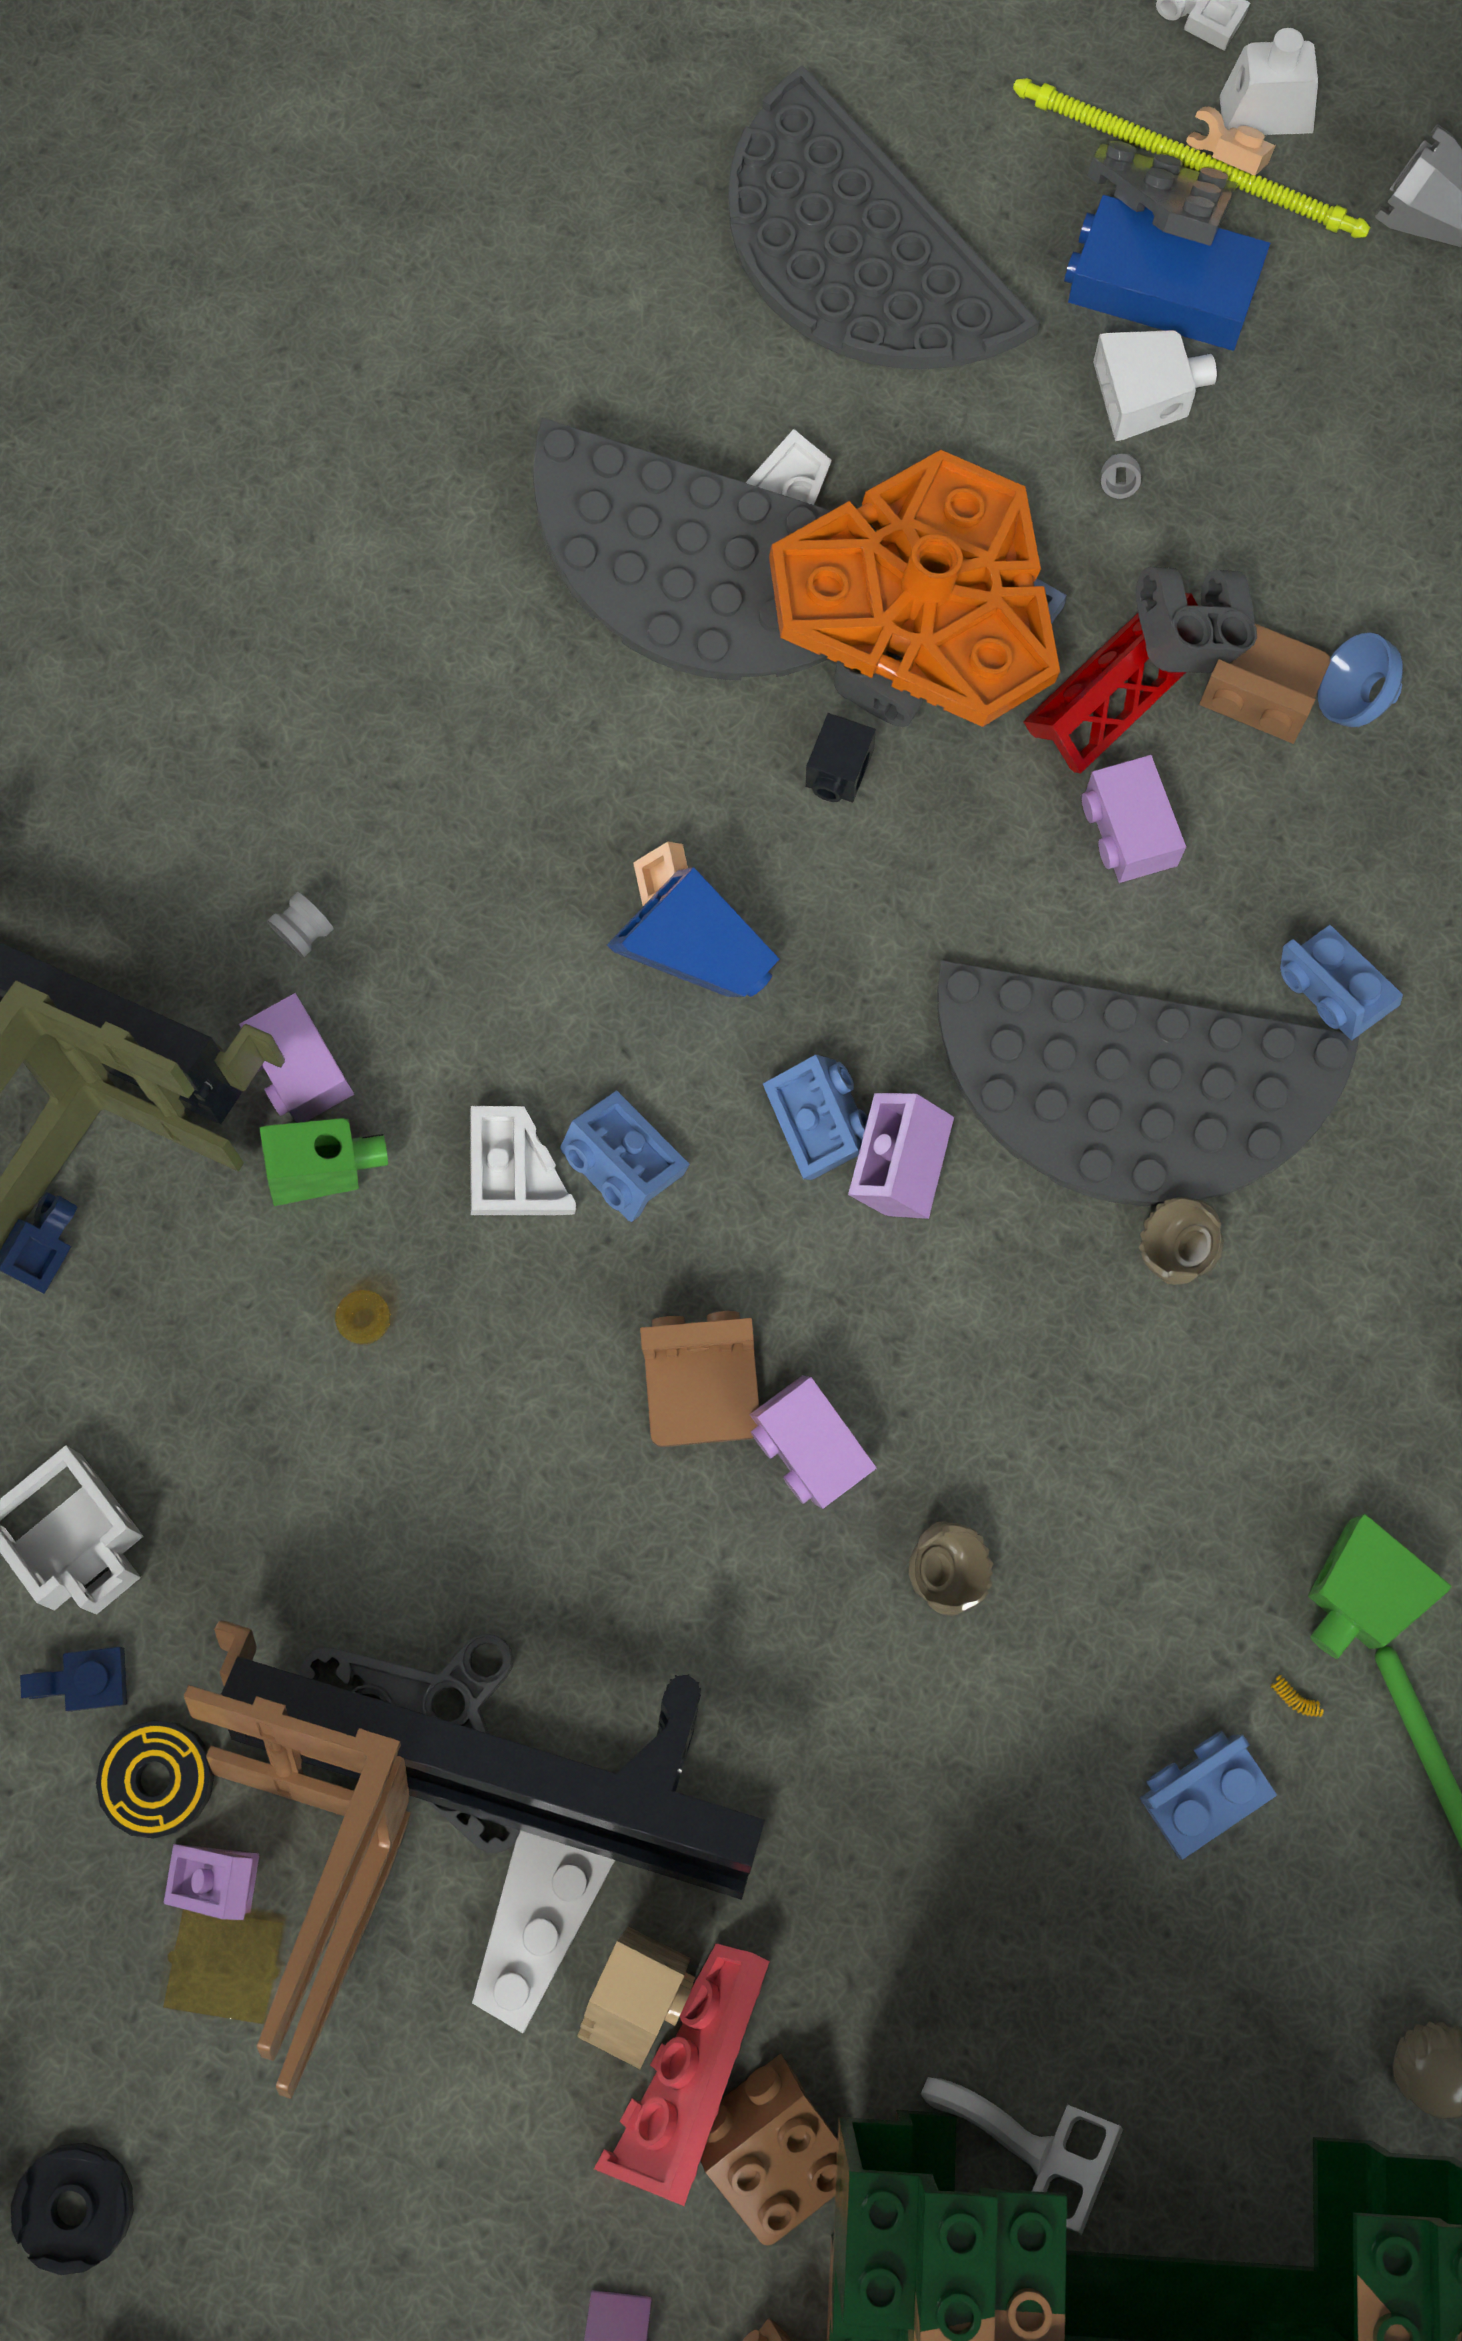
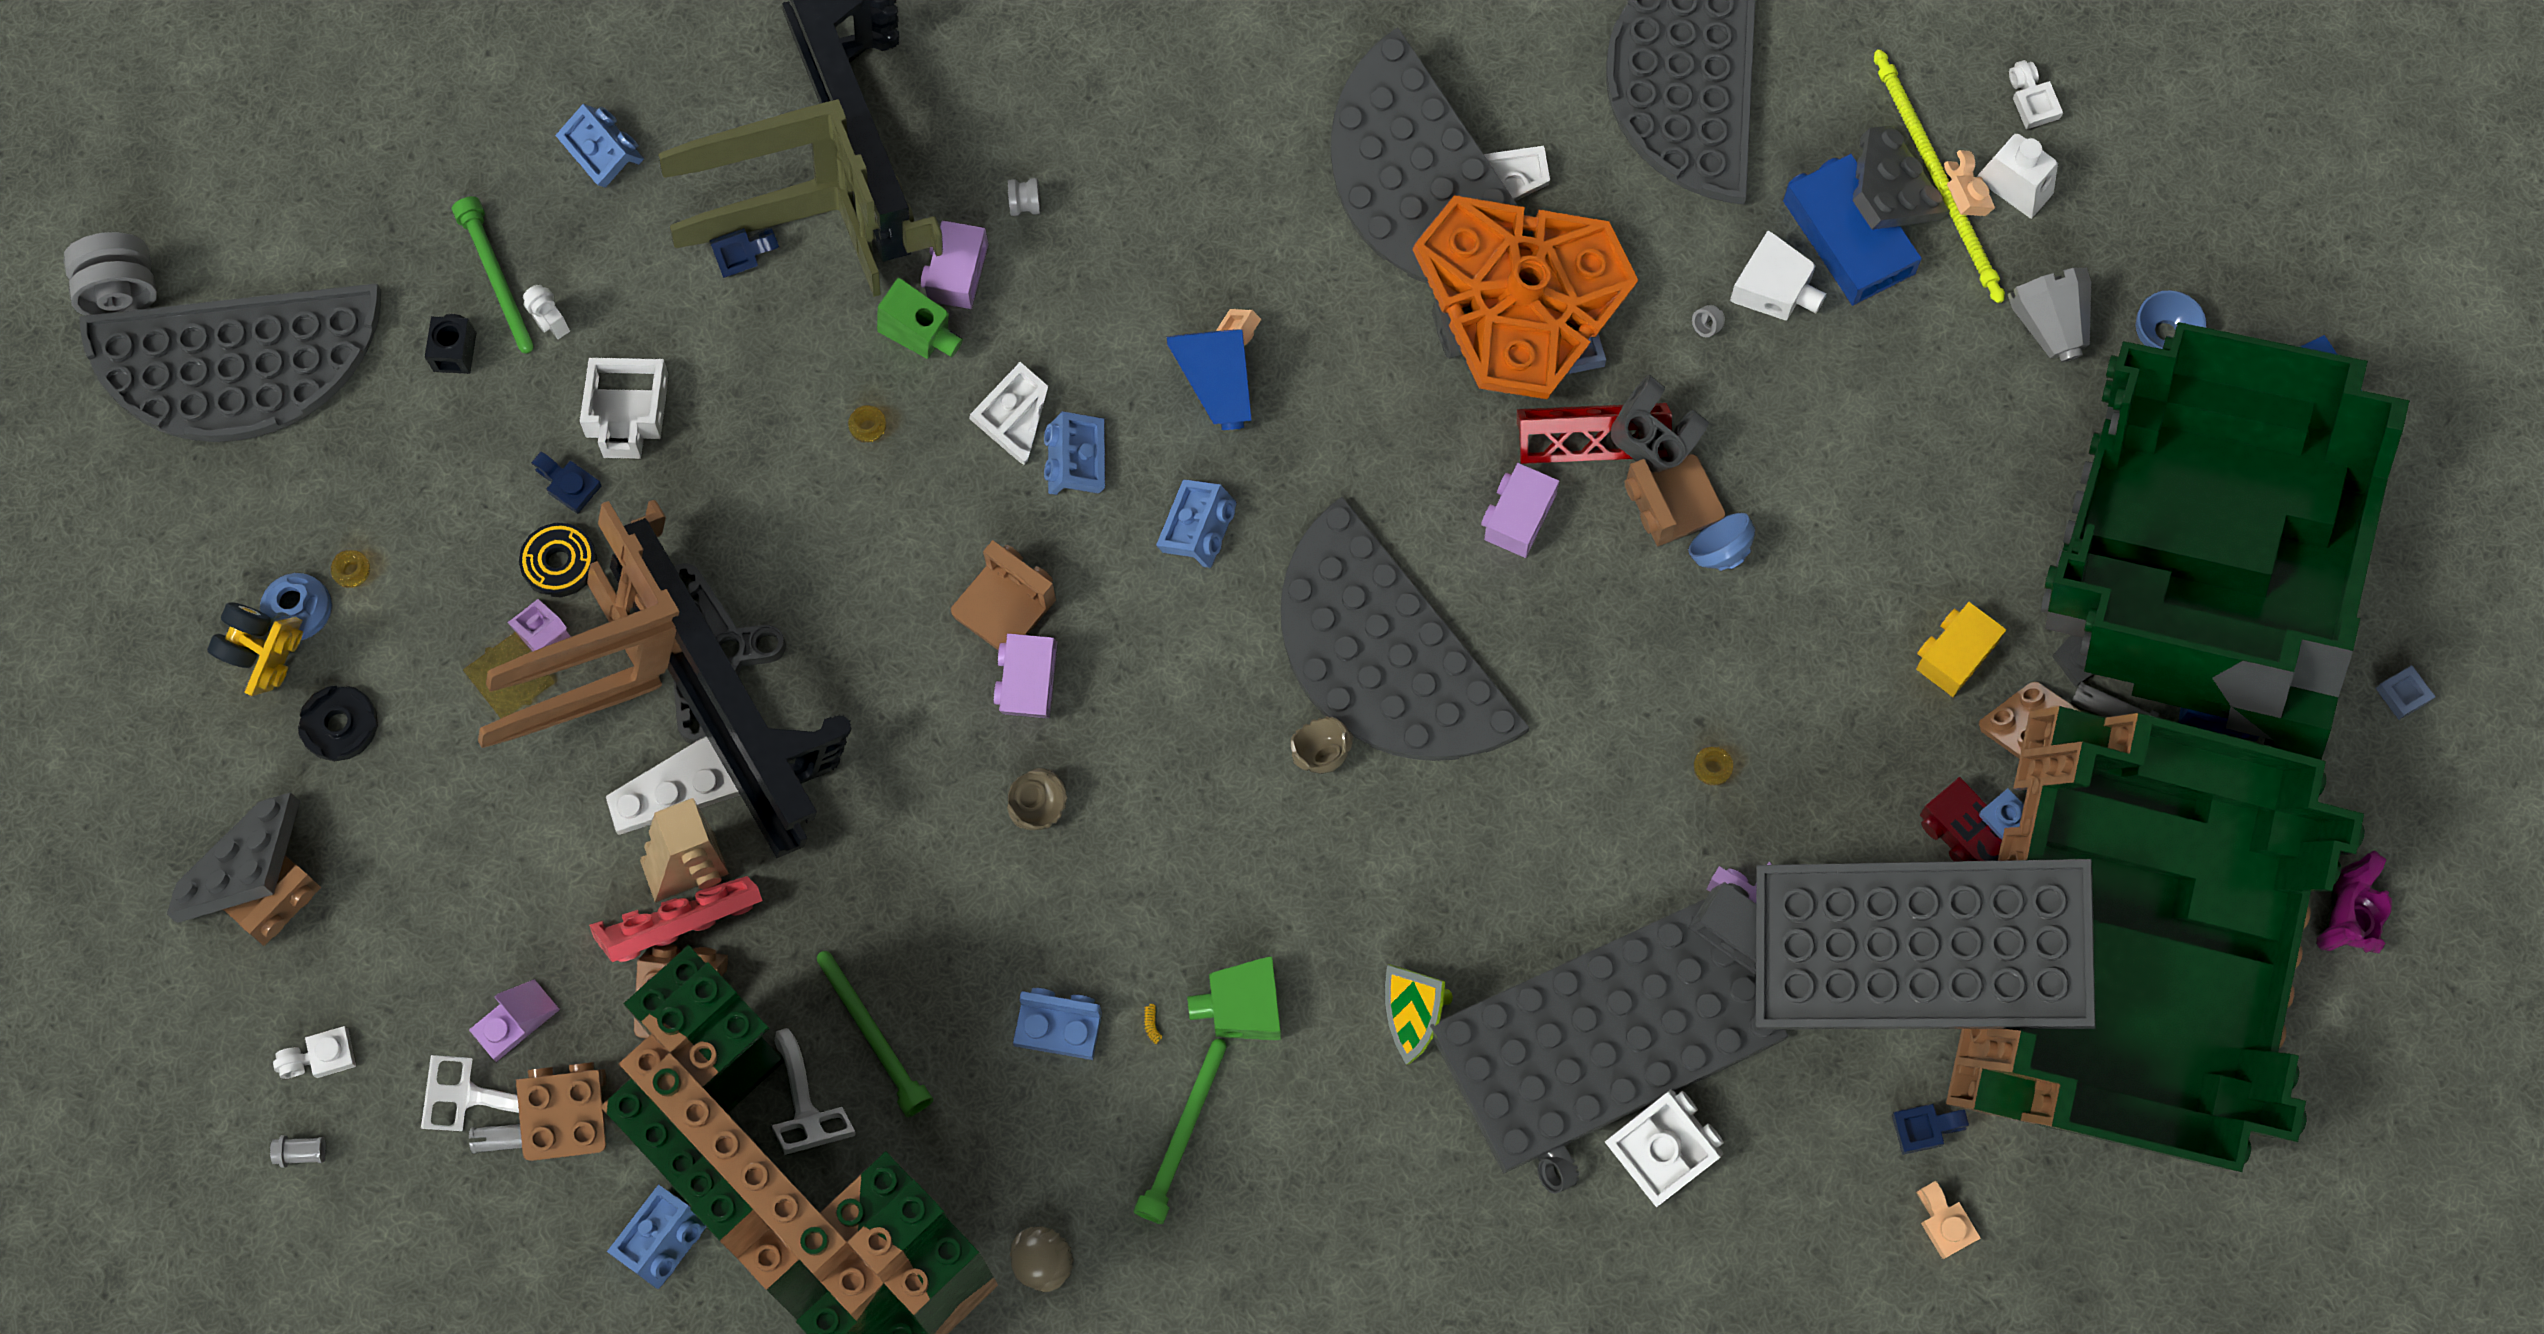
camera: 40 degrees right, 5 degrees down
(839, 759) = (1392, 345): black brick -> none
(901, 1155) = (1215, 575): lavender brick -> none
(1132, 2020) = (911, 1095): none -> bright green piece
(1339, 982) = (1546, 689): medium blue bracket -> none

